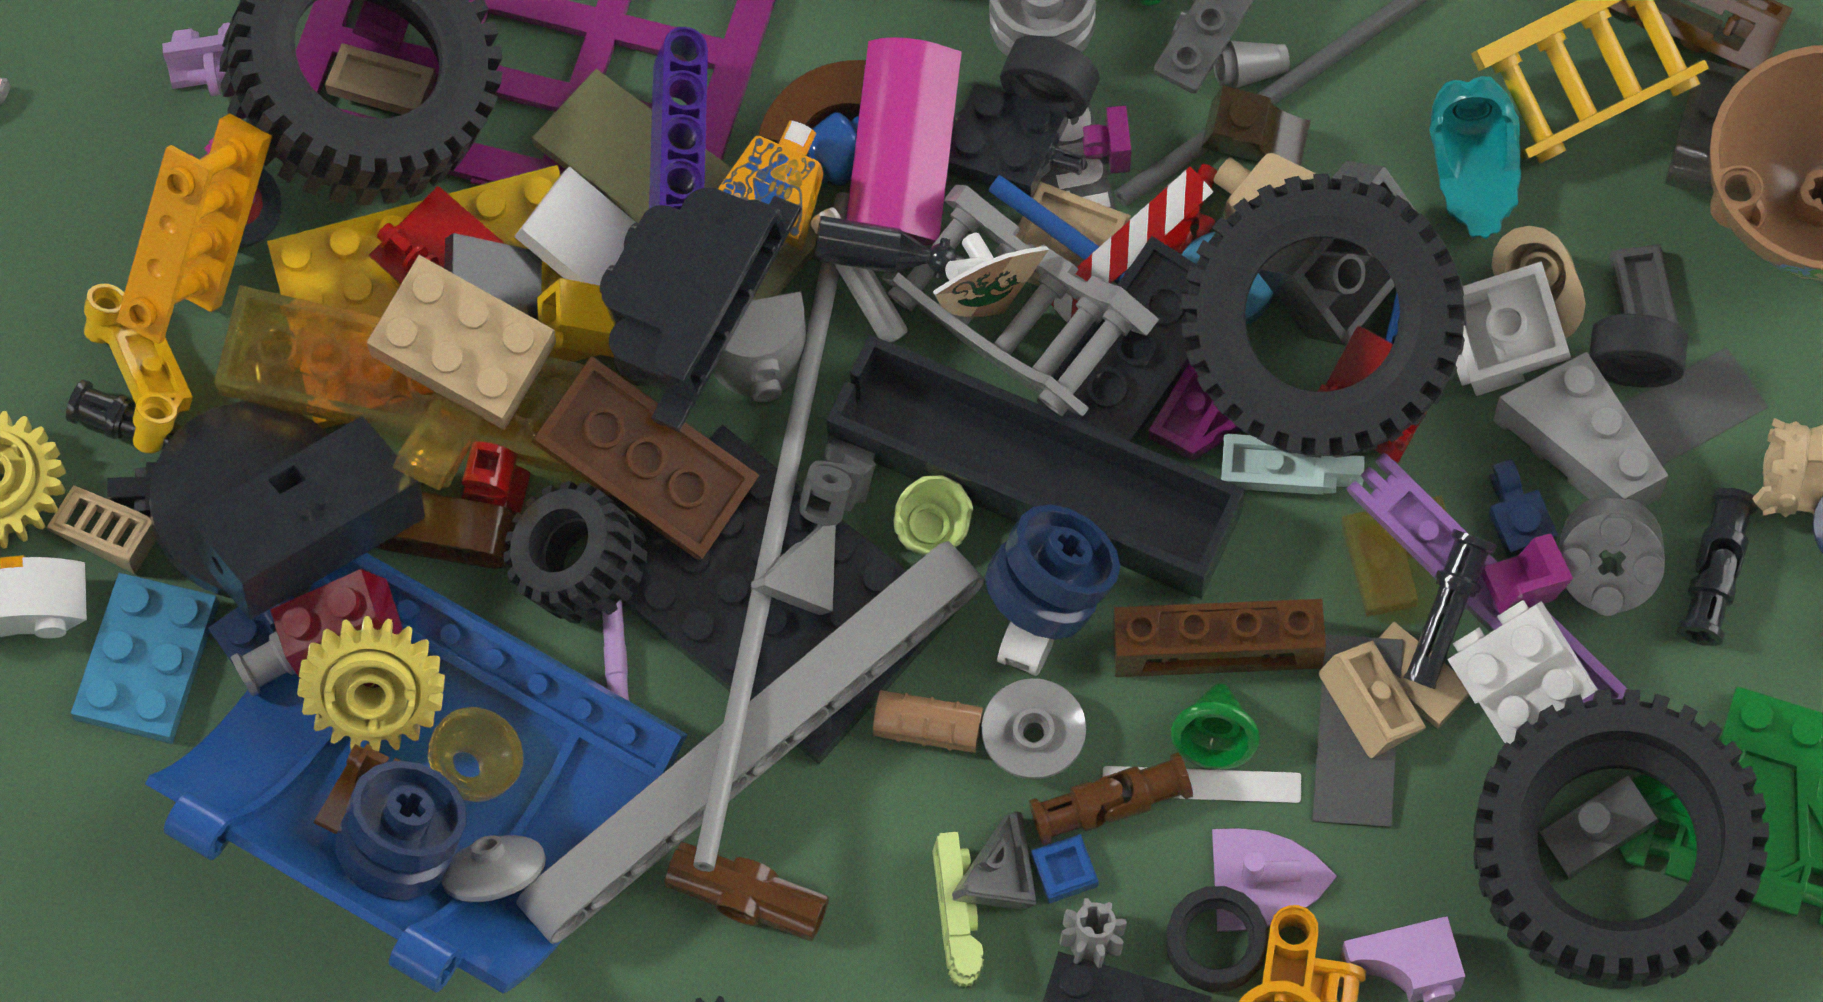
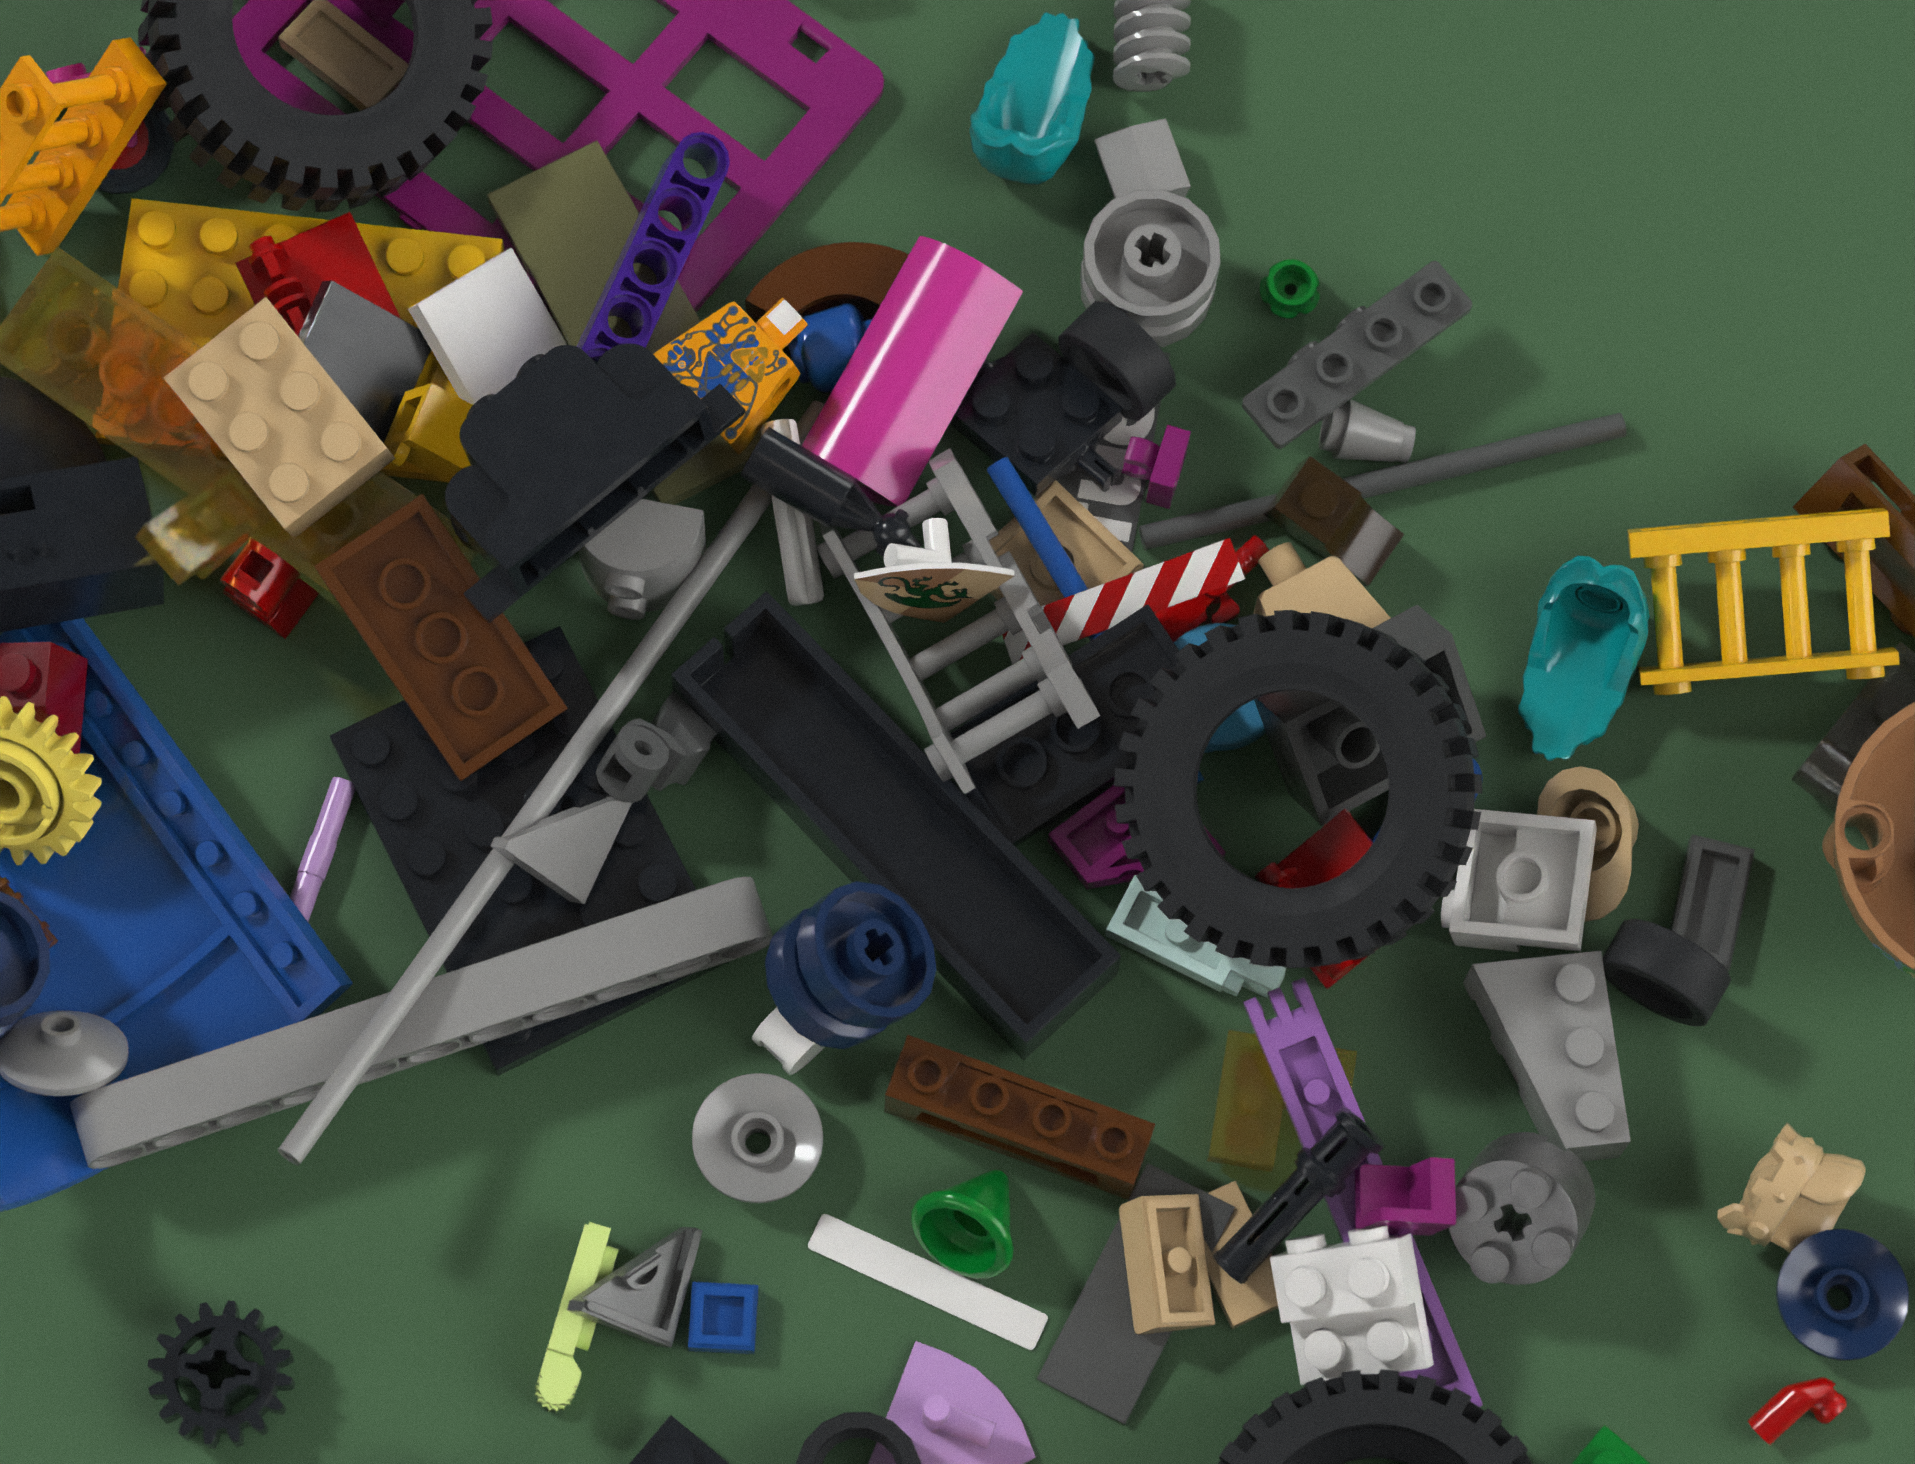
camera: 15 degrees right, 5 degrees up
(457, 532) = (204, 633): reddish brown beam -> none
(488, 740) = (127, 900): clear yellow piece -> none
(551, 529) = (285, 691): black tyre -> none
(748, 893) = (349, 1201): reddish brown piece -> none
(928, 721) = (639, 1078): medium nougat axle -> none
(932, 513) = (751, 835): yellowish green hair -> none
(1093, 932) = (701, 1413): light grey gear -> none
(1102, 801) = (799, 1257): reddish brown piece -> none
(1518, 515) = (1440, 1116): dark blue plate -> none
(1696, 407) = (1687, 1068): dark grey sticker -> none
(1718, 566) = (1646, 1275): black piece -> none

